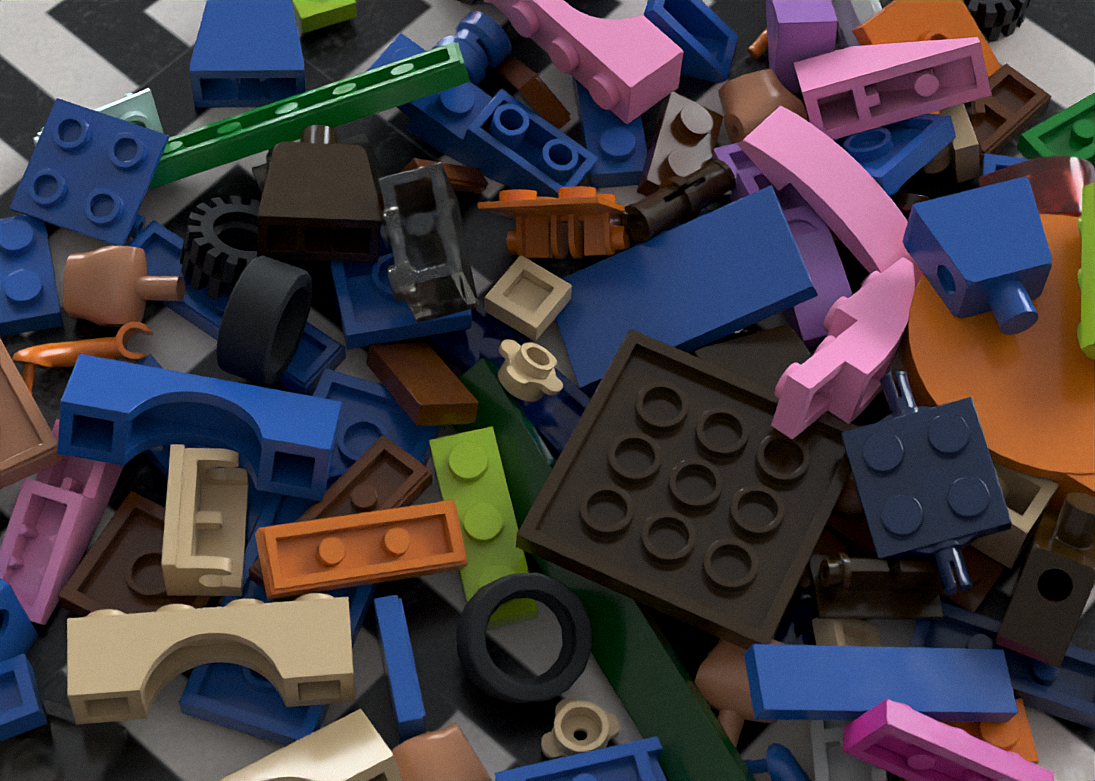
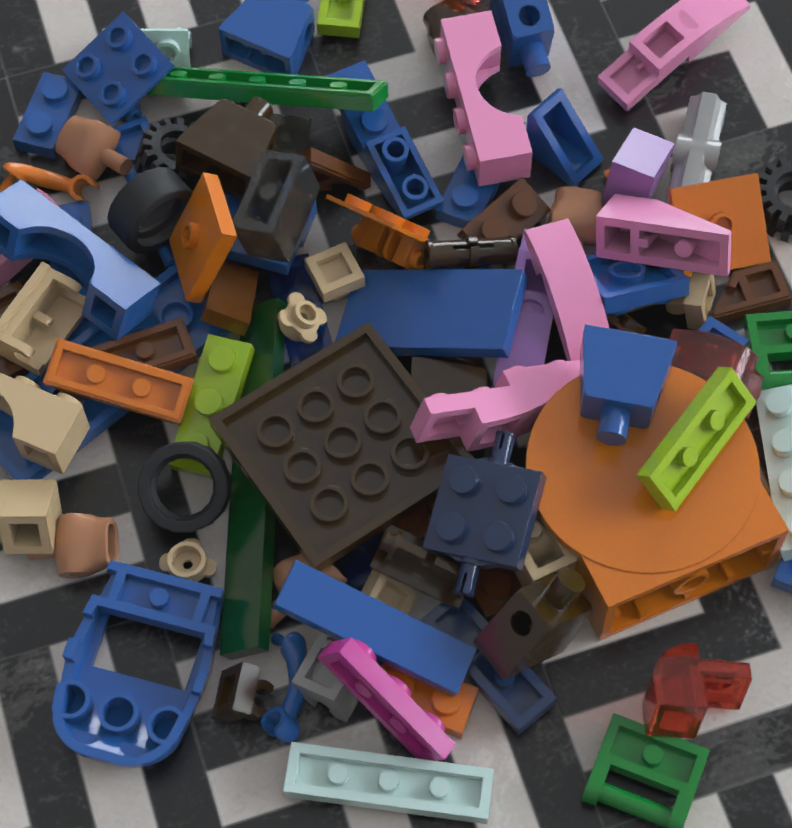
camera: 35 degrees right, 5 degrees up
(357, 323) = (202, 238): none -> orange plate
(399, 668) = (102, 468): blue tile -> none
(481, 44) = (412, 93): blue wheel -> none
(533, 92) = (430, 139): reddish brown tile -> none

